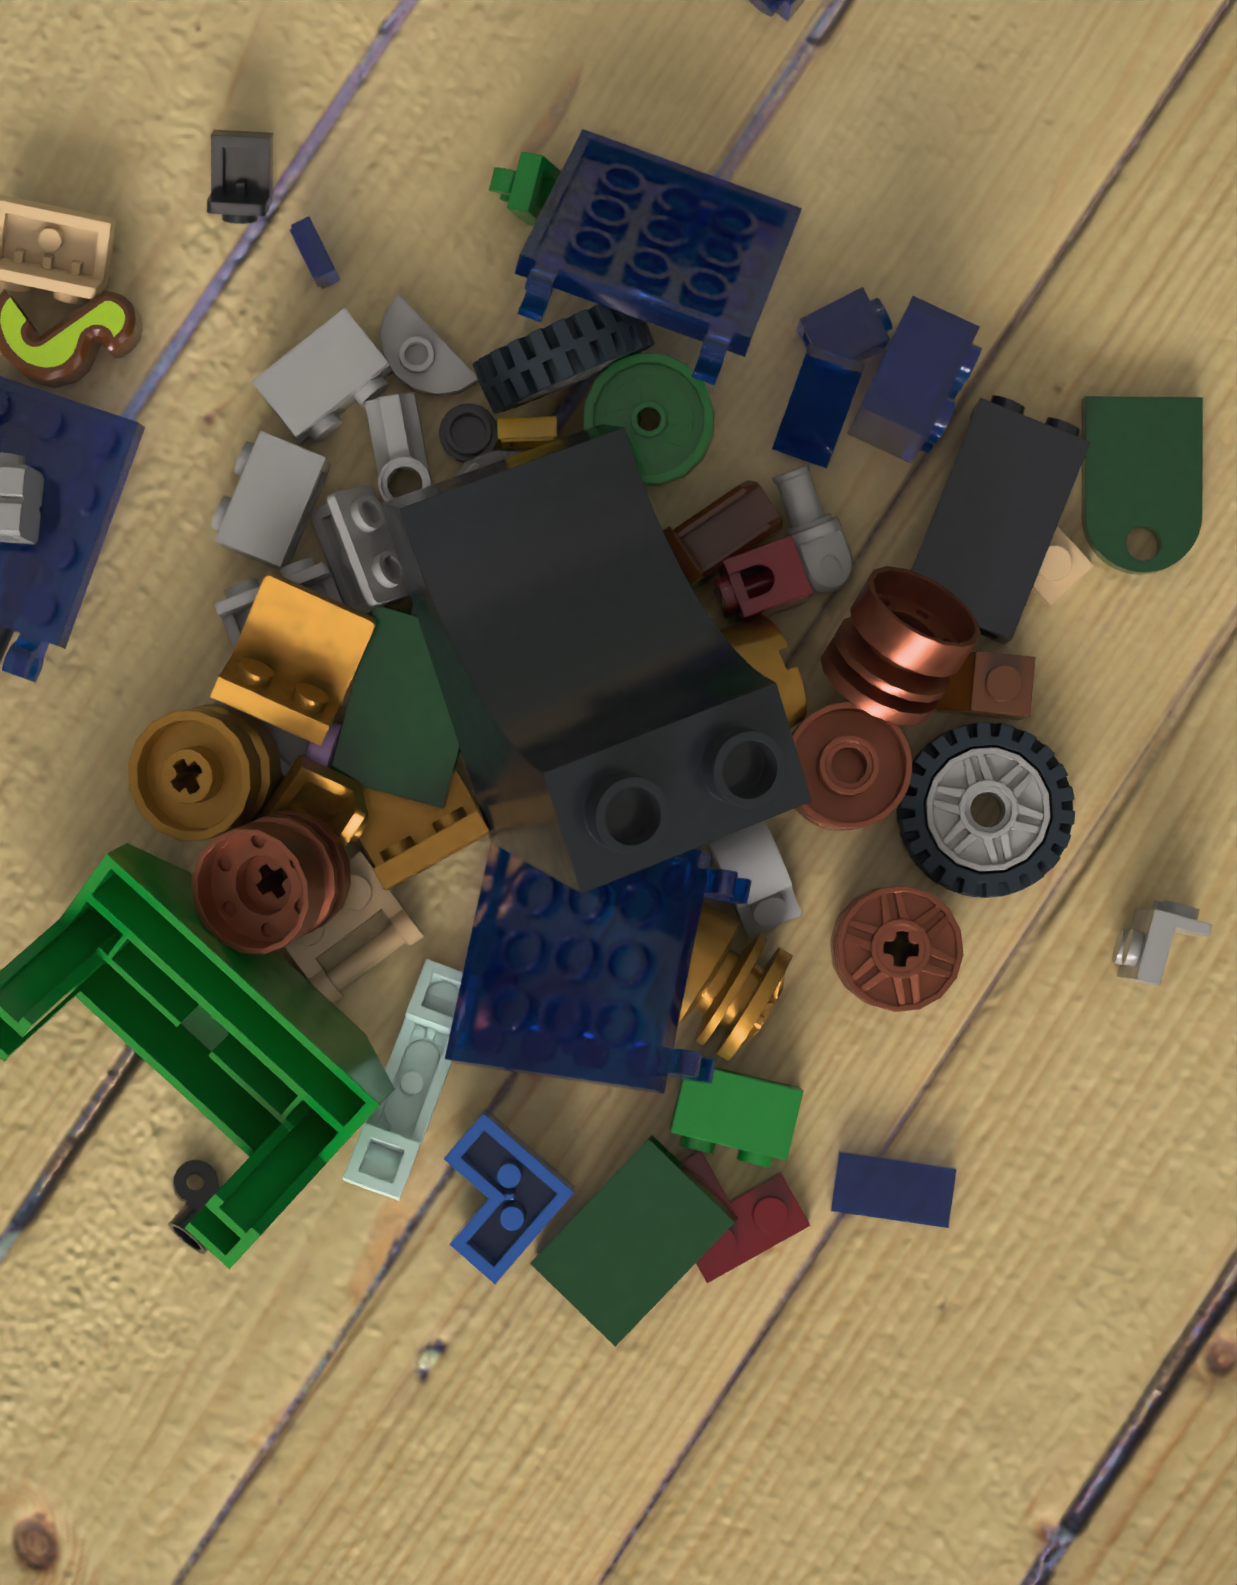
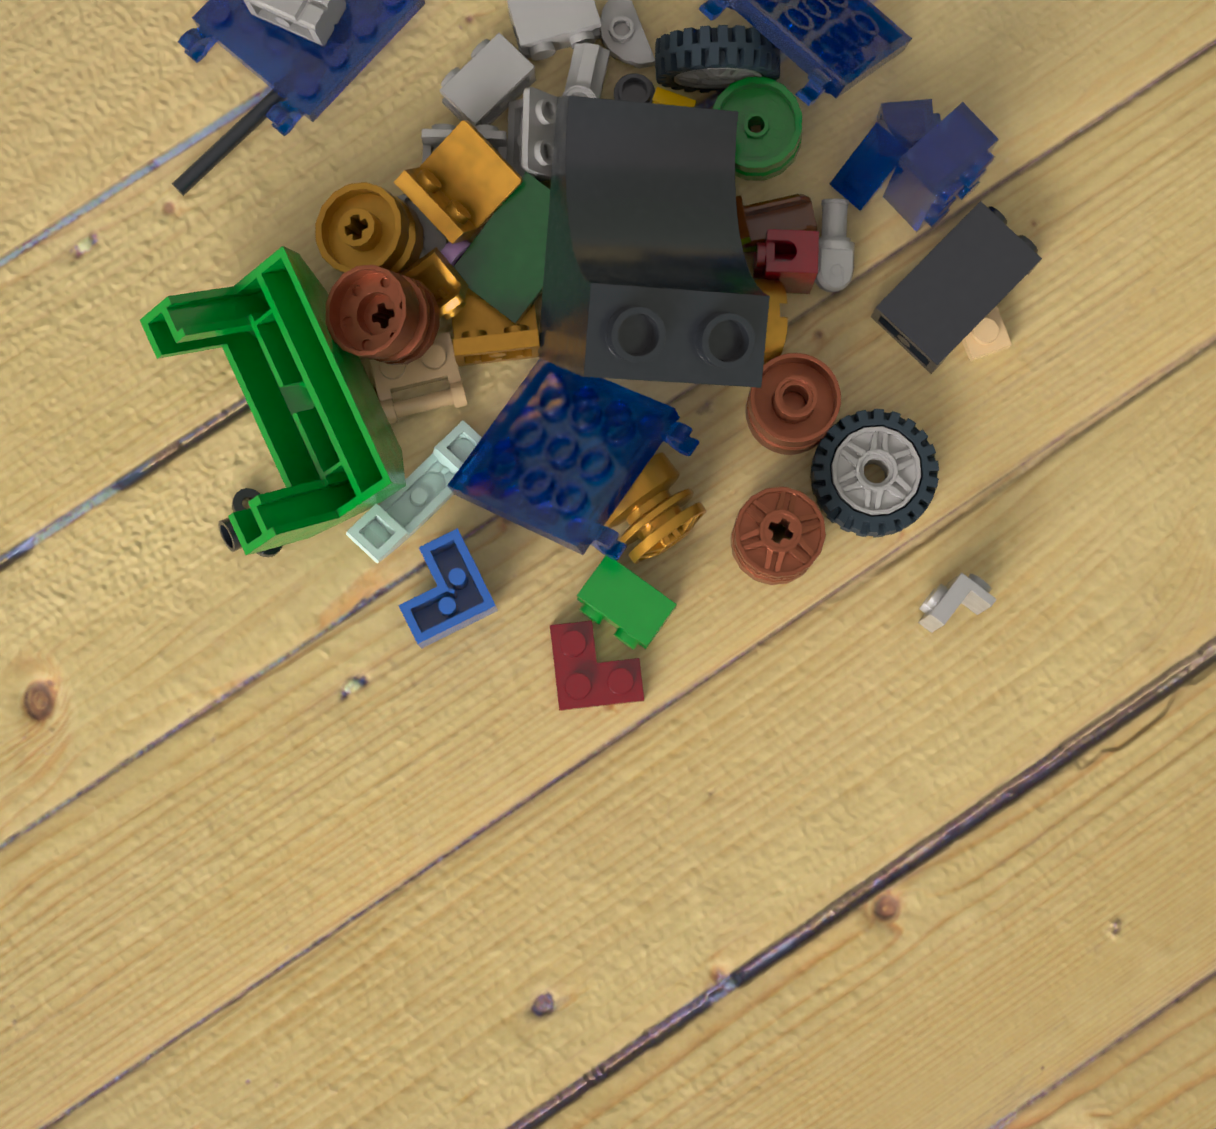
camera: 25 degrees right, 5 degrees down
(634, 1240) = (522, 659): dark green tile -> none
(757, 858) = (705, 468): light grey brick -> none
(893, 1189) = (709, 700): clear blue tile -> none
(900, 646) = (861, 334): copper wheel -> none
(991, 687) = (898, 387): reddish brown arch -> none
(1142, 475) = (1066, 299): dark green tile -> none

